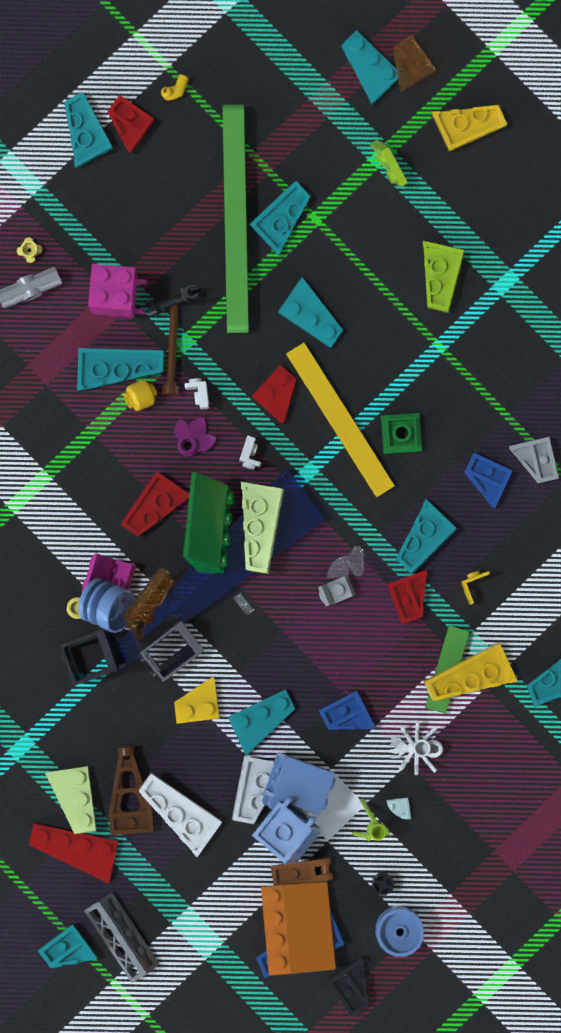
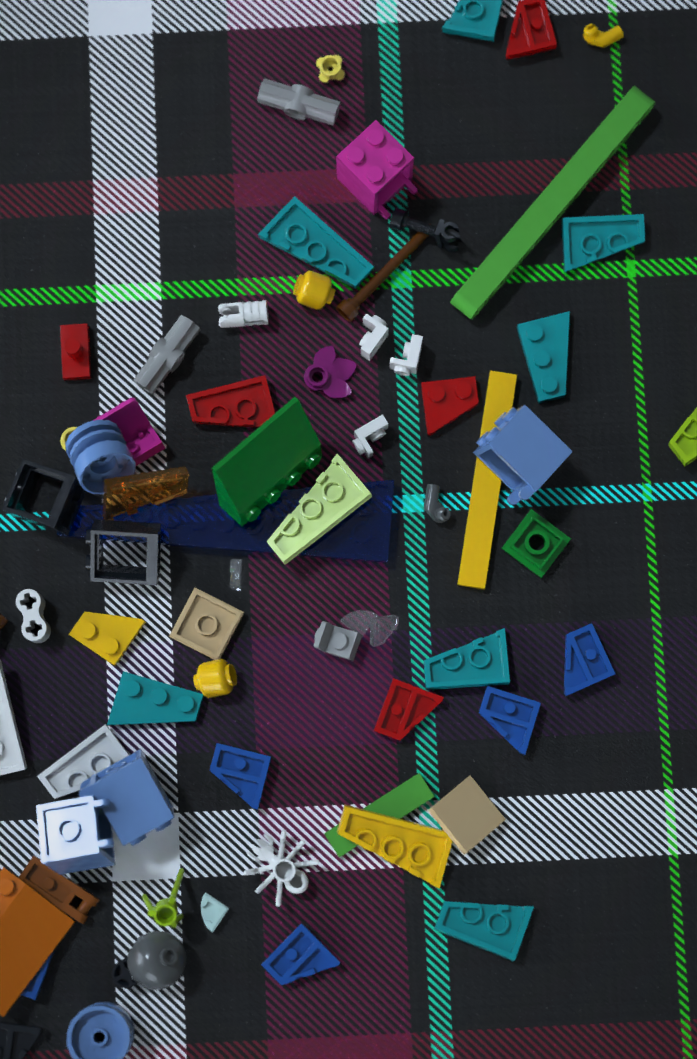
camera: 45 degrees right, 5 degrees down
(30, 554) = (75, 351): none -> red tile
(87, 509) = (166, 354): none -> light grey piece
(114, 441) = (243, 314): none -> white hinge
(147, 730) = (33, 616): none -> white axle
(231, 383) = (412, 353): none -> white bracket
(251, 647) = (206, 624): none -> tan tile
(285, 674) = (215, 678): none -> yellow head
(322, 463) = (433, 506): none -> dark grey arm
(349, 388) = (521, 452): none -> medium blue container
(394, 861) = (157, 960): none -> dark grey cylinder
(471, 789) = (299, 957): none -> blue wing
(473, 547) = (510, 716): none -> blue wing
(473, 576) = (483, 744): yellow bracket -> none
(497, 625) = (466, 815): none -> tan tile
(537, 459) = (650, 684): light grey wing -> none

